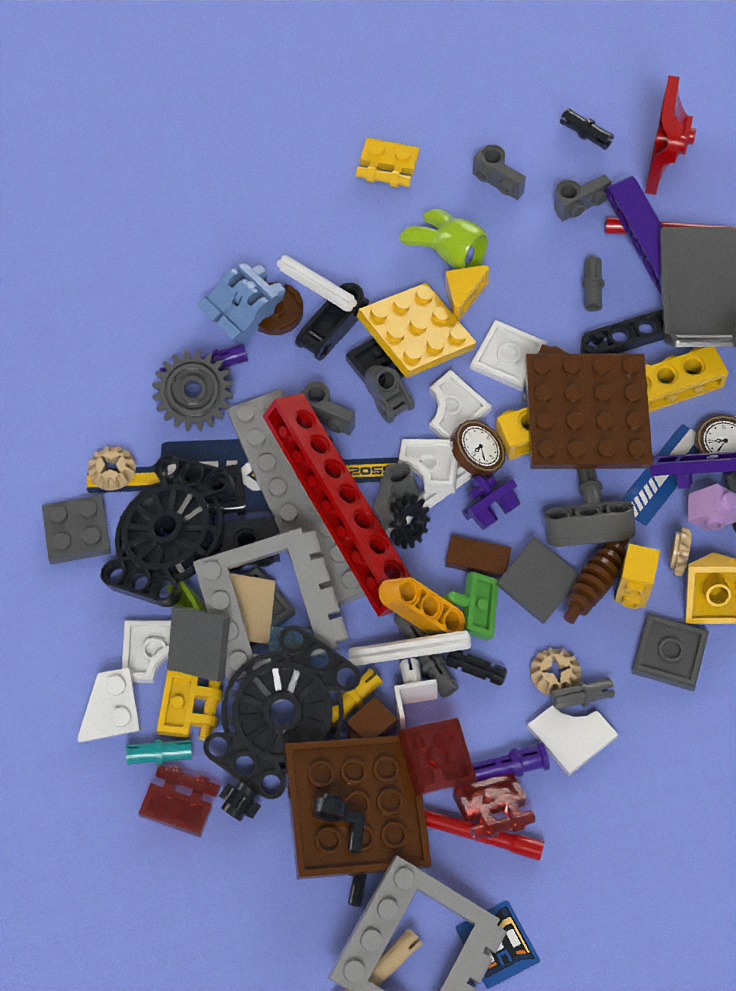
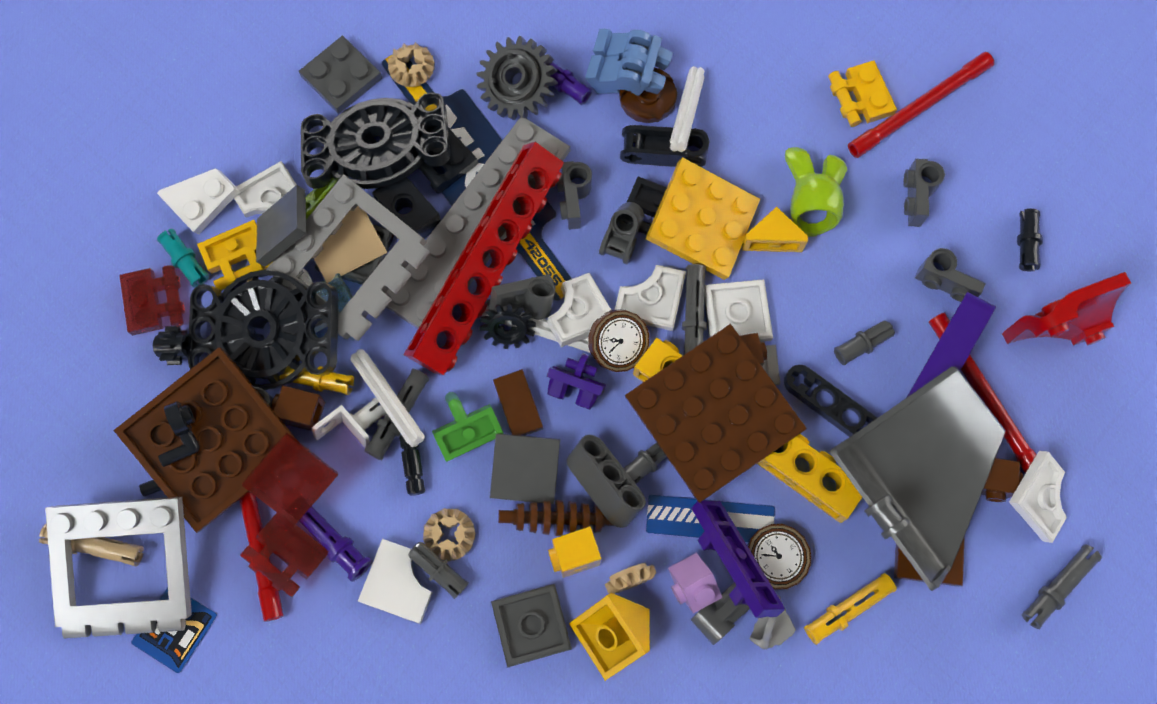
camera: 55 degrees right, 10 degrees up
(421, 606) = (423, 370): light orange beam -> none
(429, 178) = (873, 136): none -> red piece
(483, 379) = (694, 314): none -> dark grey pin

